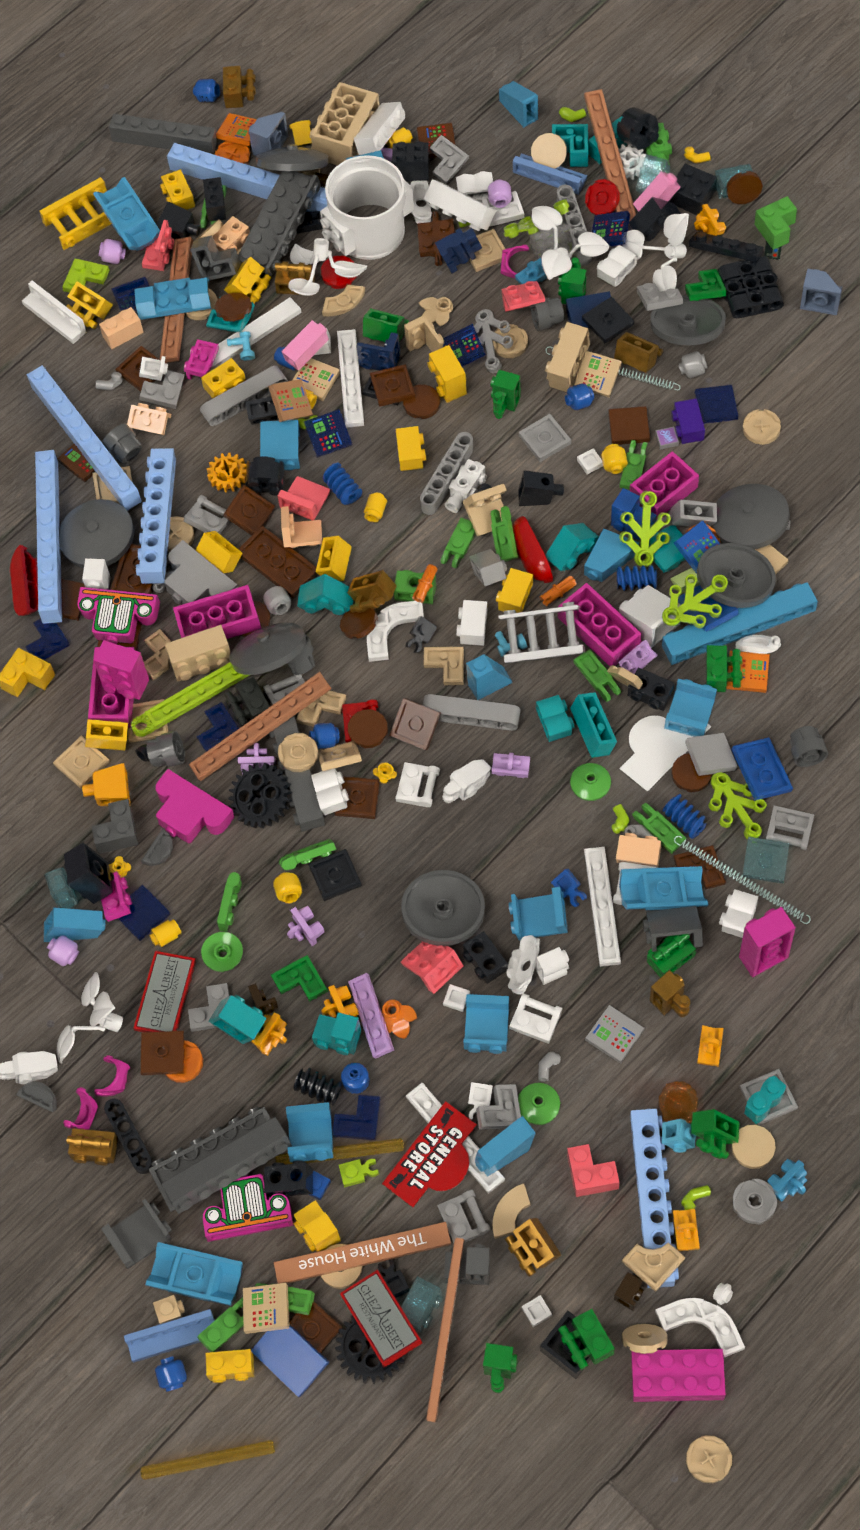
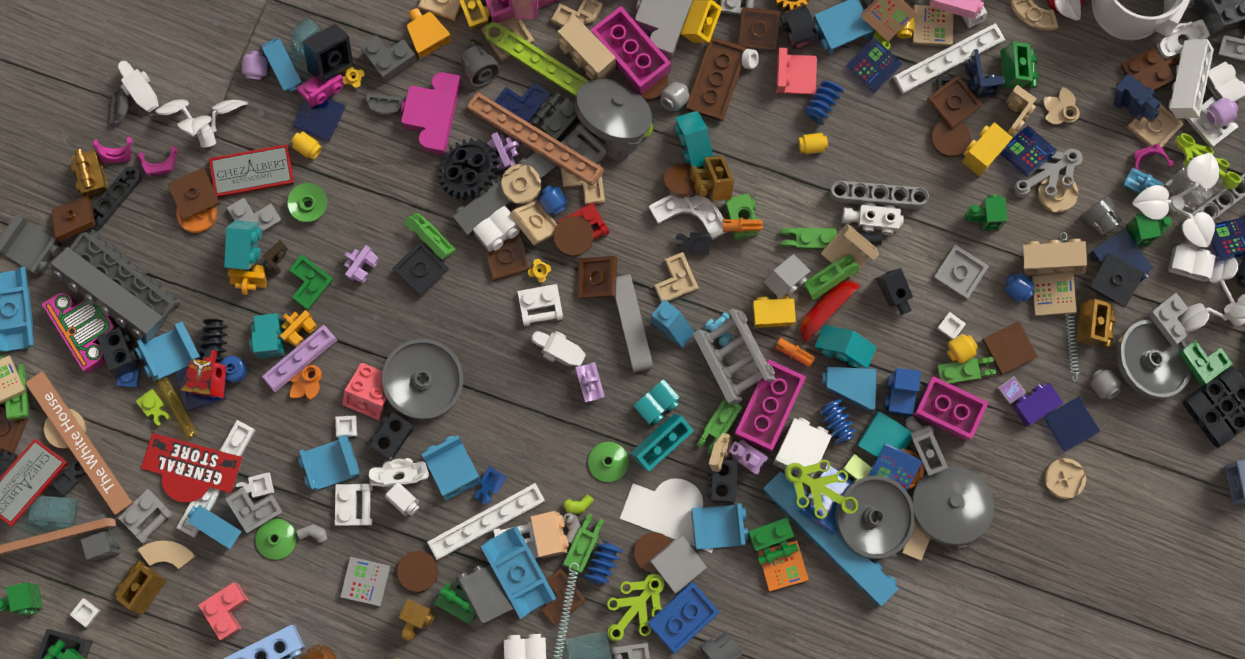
camera: 60 degrees right, 15 degrees up
(131, 1176) = (73, 218): none -> reddish brown plate
(229, 900) = (357, 187): bright green hinge -> none
(273, 527) = (750, 59): none -> white tile
(287, 887) = (390, 232): yellow head -> none
(301, 532) = (754, 84): light nougat bracket -> none
(317, 1228) = (86, 395): yellow brick -> none
(333, 557) = (737, 129): yellow brick -> none
(353, 1099) = (205, 376): none -> red torso
(409, 448) = (889, 148): yellow brick -> none
(473, 622) = (724, 286): white brick -> none
(522, 295) = (1108, 185): coral bracket -> none
(624, 983) = (417, 571): none -> reddish brown tile
(645, 532) = (885, 412): lime plant -> none
(758, 644) = (815, 565): white arm -> none

